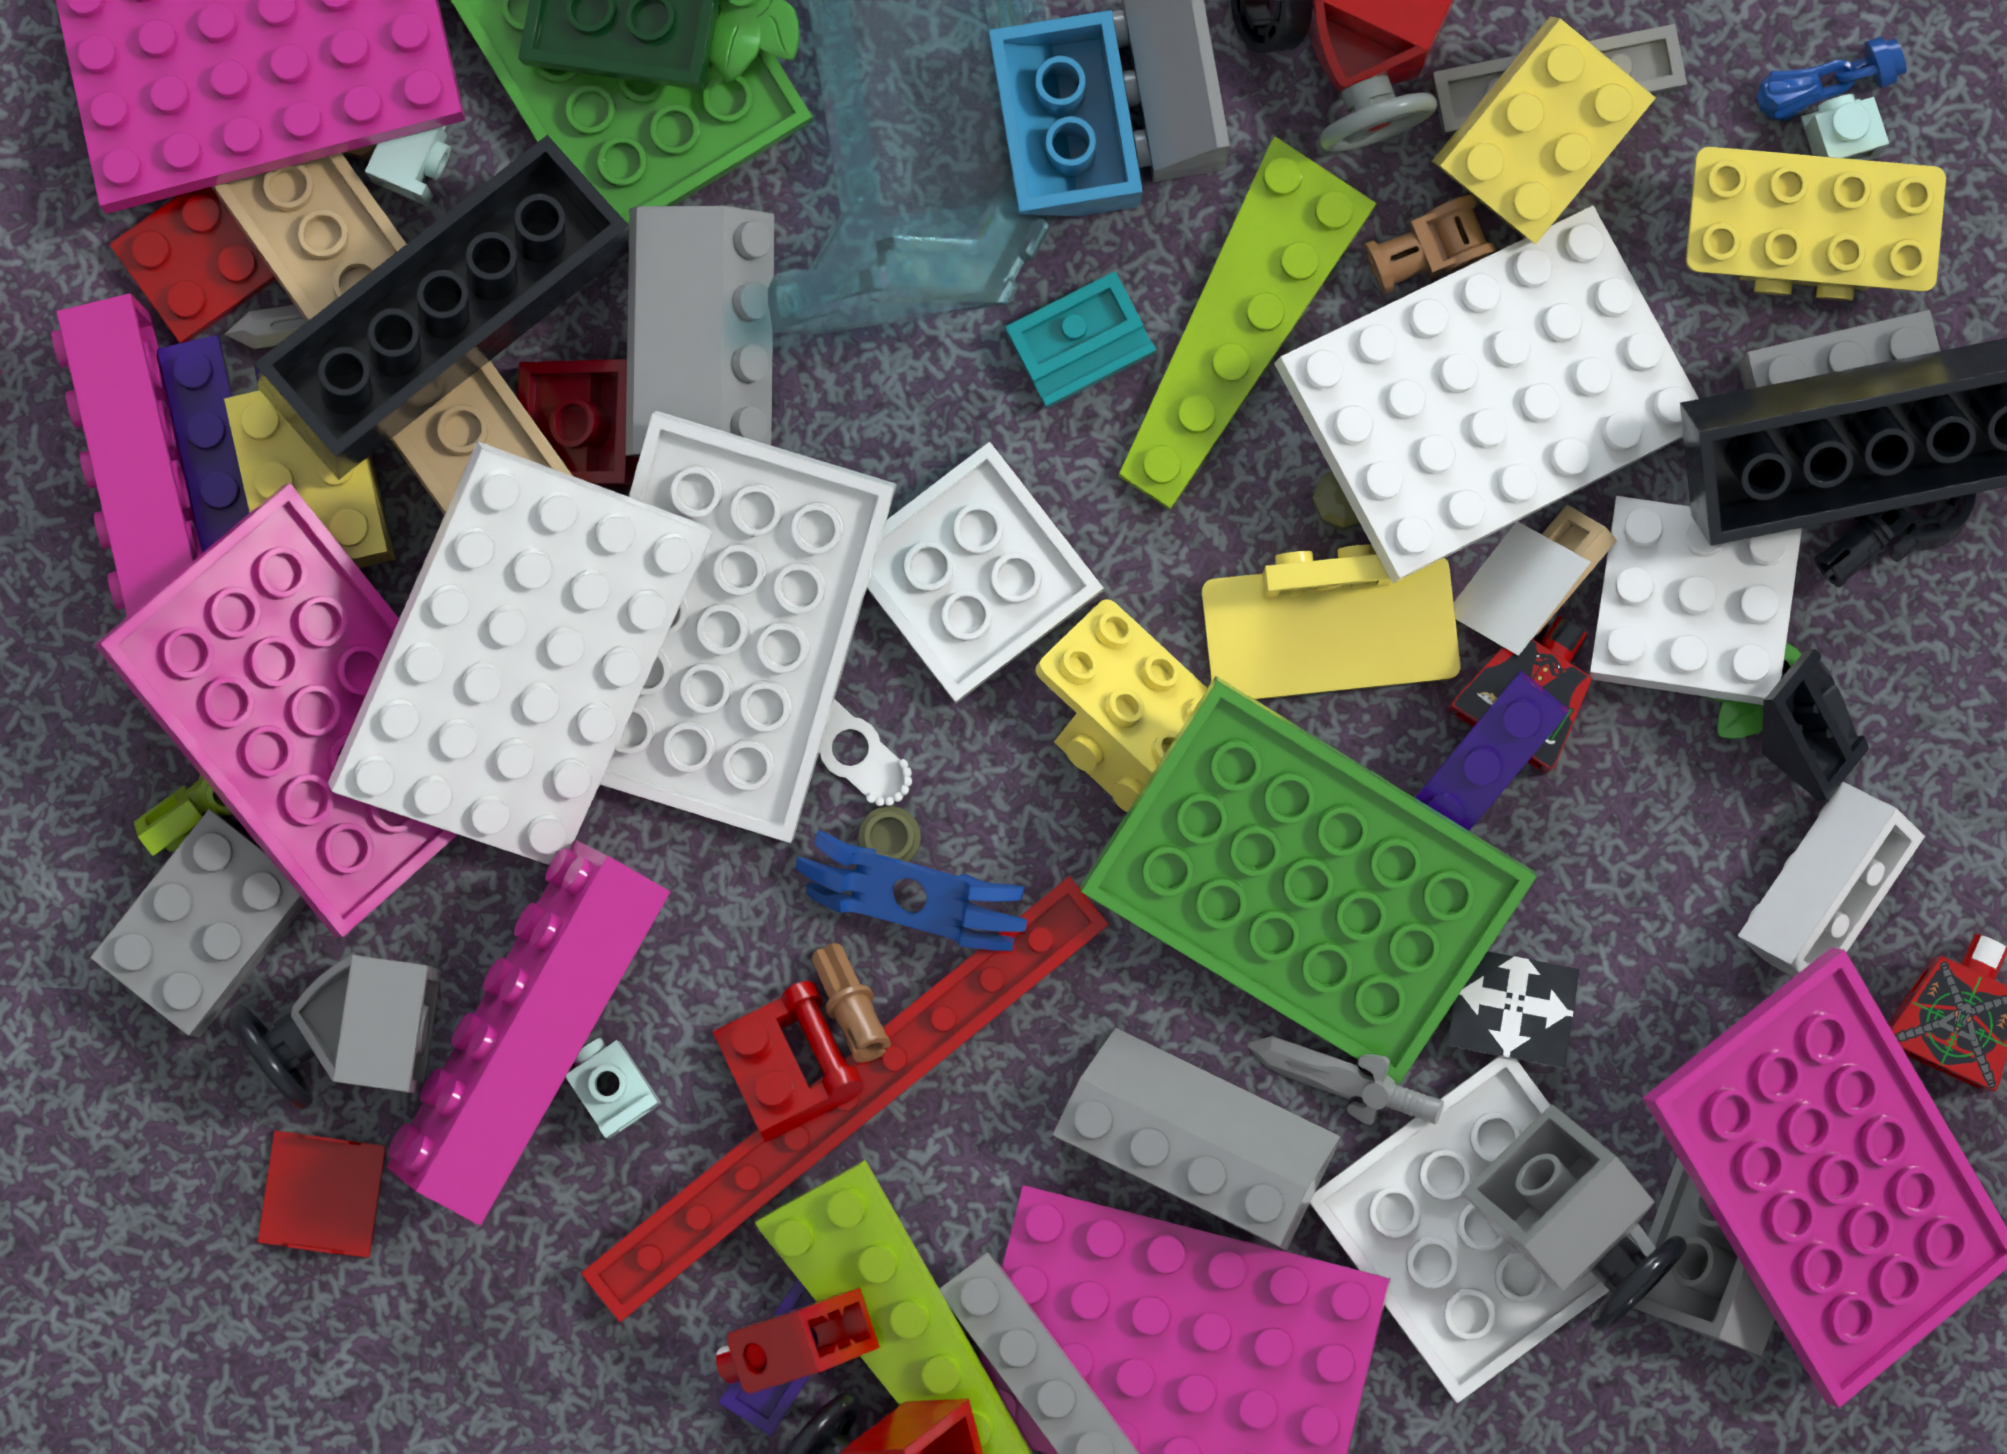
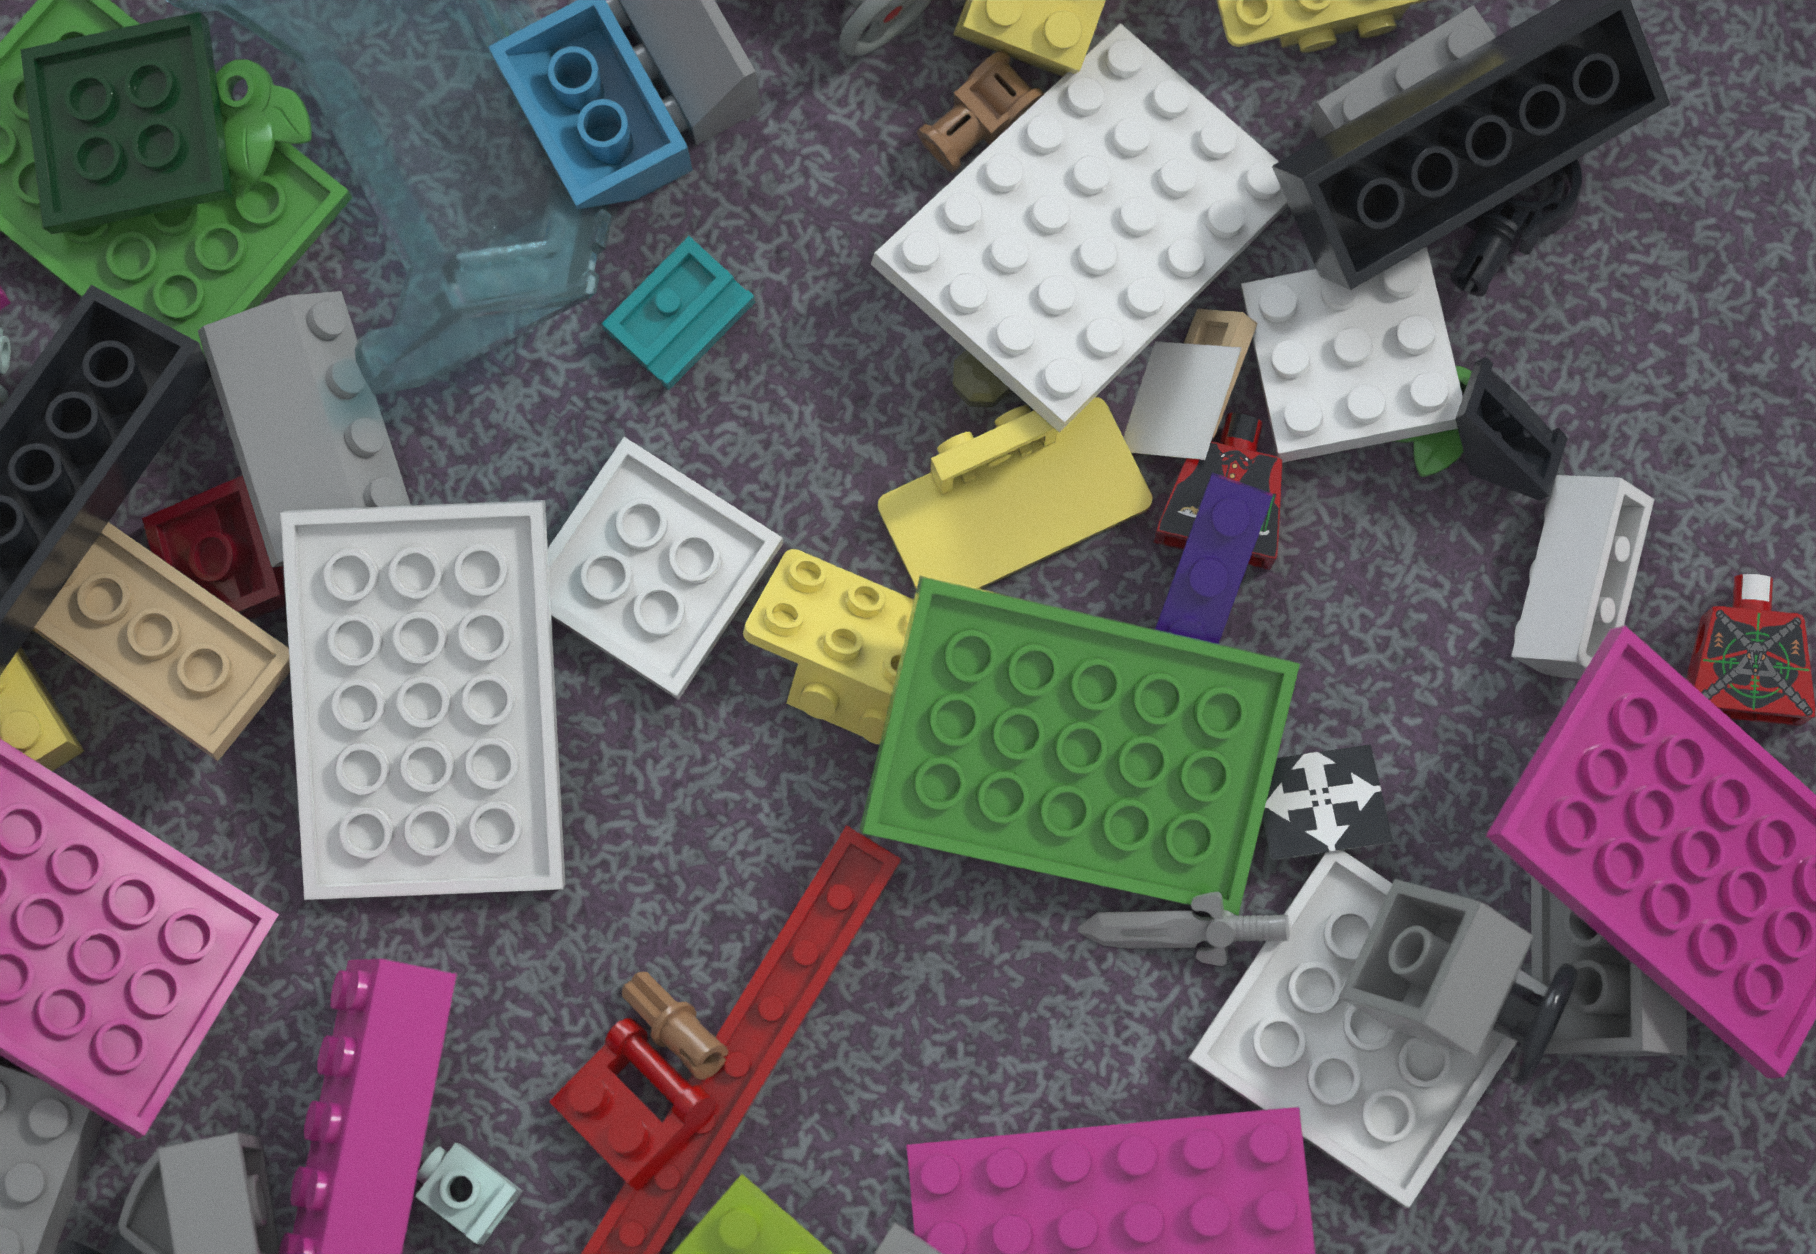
camera: 20 degrees left, 5 degrees down
(519, 655) = (227, 794): white plate -> none
(880, 775) = (629, 792): white piece -> none
(891, 833) = (658, 850): olive plate -> none
(947, 895) = (732, 883): blue piece -> none
(1197, 1137) = (1061, 1037): light grey slope -> none
(1264, 279) = (833, 201): lime wing -> none

